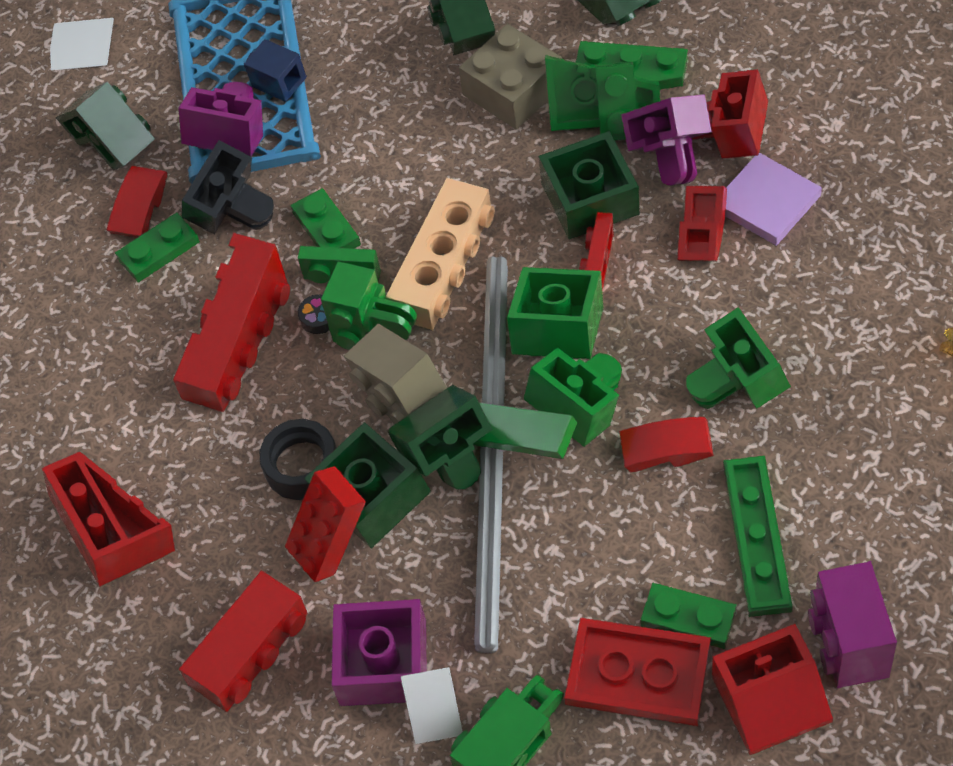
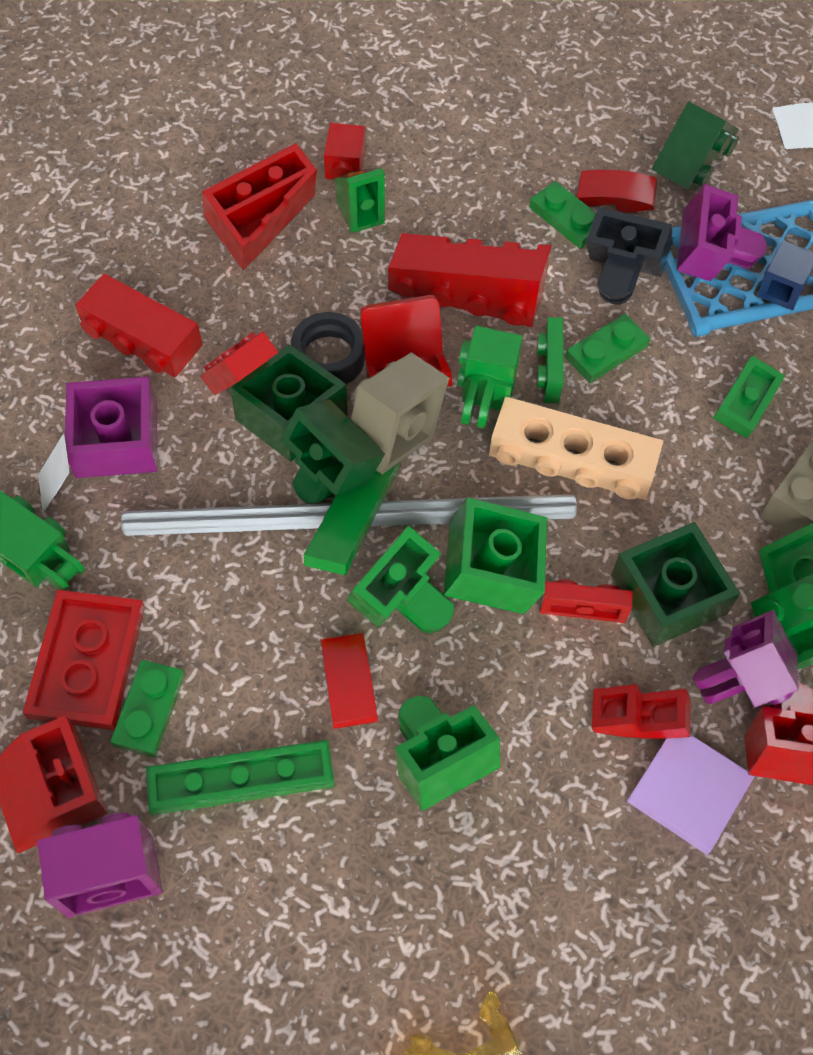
camera: 75 degrees right, 5 degrees up
(39, 440) = (344, 150): none -> red brick
(108, 421) = (361, 198): none -> green slope
(317, 386) = (400, 328): none -> red bracket
(397, 118) = (749, 397): none -> green plate

